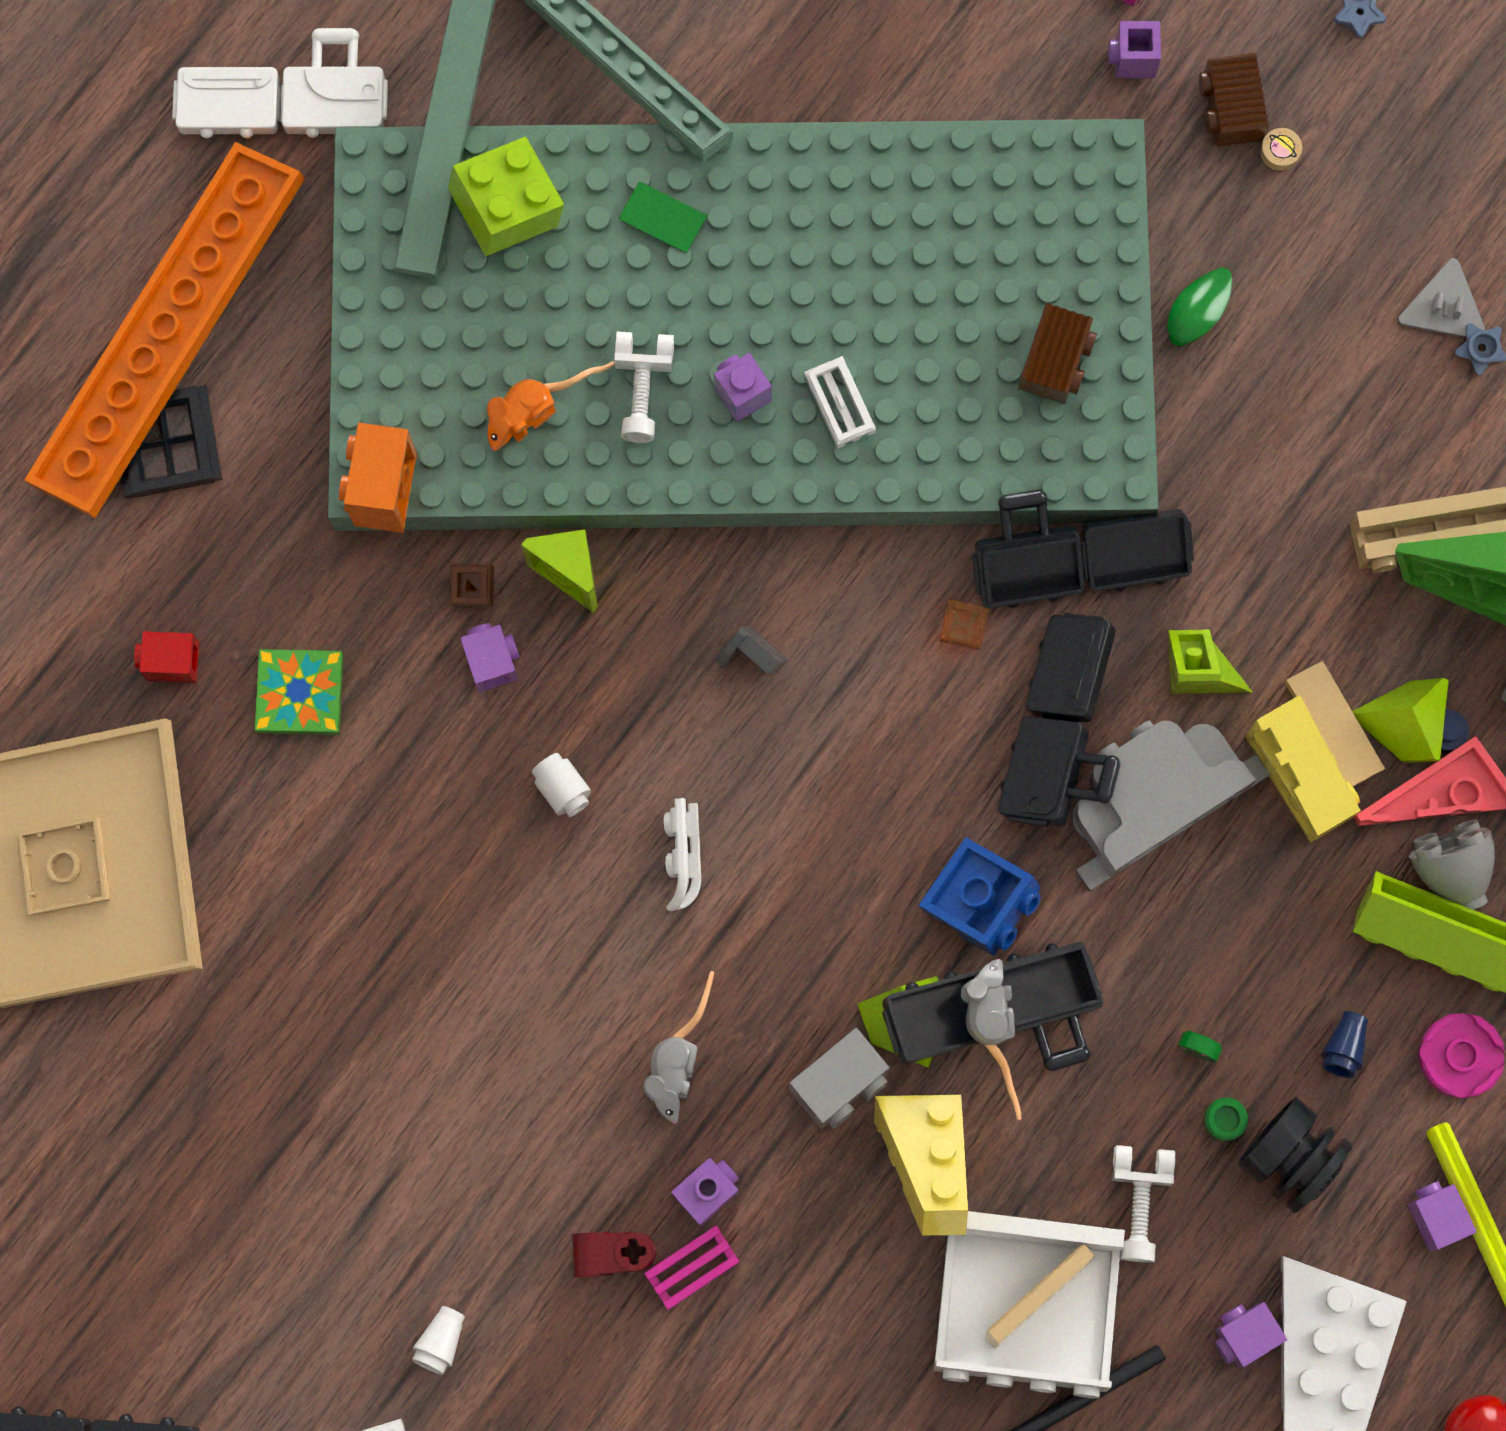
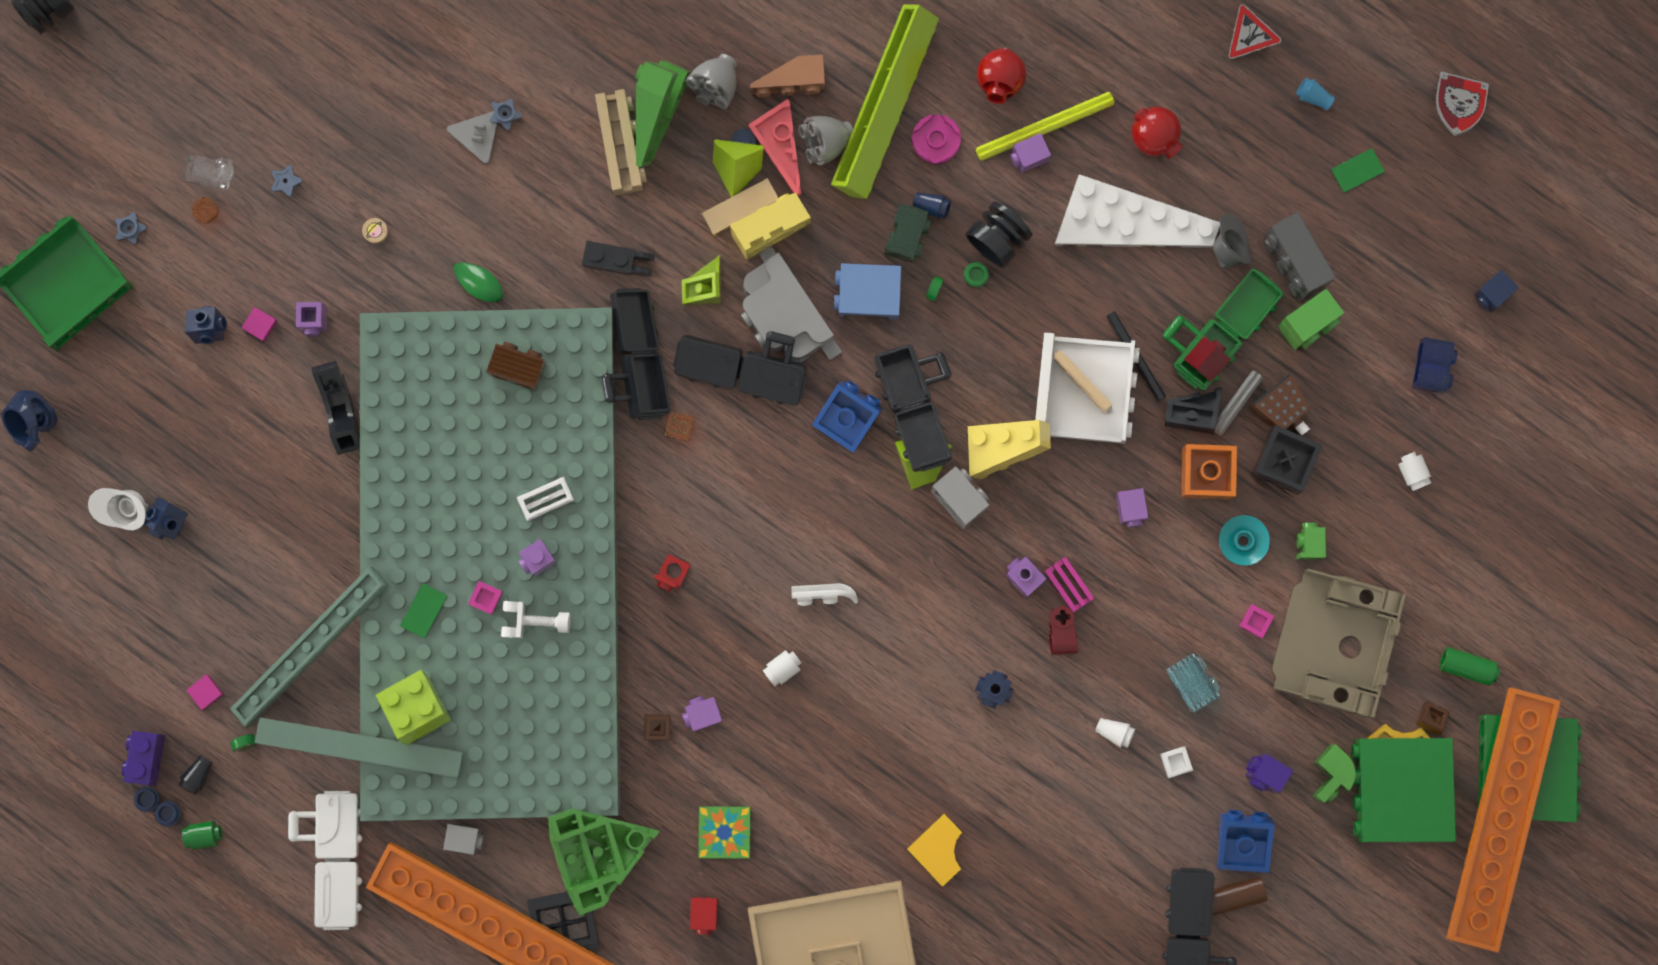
camera: 90 degrees left, 5 degrees up
(255, 1034) = (936, 849): none -> yellow tile
(269, 486) = (595, 854): none -> bright green wedge
(304, 286) = (463, 839): none -> light grey brick
(379, 477) = (597, 779): orange brick -> none
(525, 406) = (549, 691): orange animal -> none
(528, 1144) = (988, 698): none -> dark blue brick
(565, 563) = (646, 666): lime slope -> none
(672, 1064) = (951, 597): light grey animal -> none
(680, 310) = (485, 597): none -> dark pink tile
(708, 599) = (666, 582): none -> red bracket
(753, 646) = (696, 552): dark grey tile -> none
(821, 1379) = (1132, 507): none -> medium lavender brick
(989, 1017) = (924, 408): light grey animal -> none
(994, 93) = (339, 407): none -> black arch
(1138, 1247) = (1051, 325): white bar -> none
(1194, 934) = (868, 290): none -> medium blue panel
(1235, 99) = (343, 258): reddish brown brick -> none
(1242, 521) = (615, 259): none -> black hinge
(1247, 1334) = (1100, 264): medium lavender brick -> none
(1300, 1005) = (910, 226): none -> clear green brick

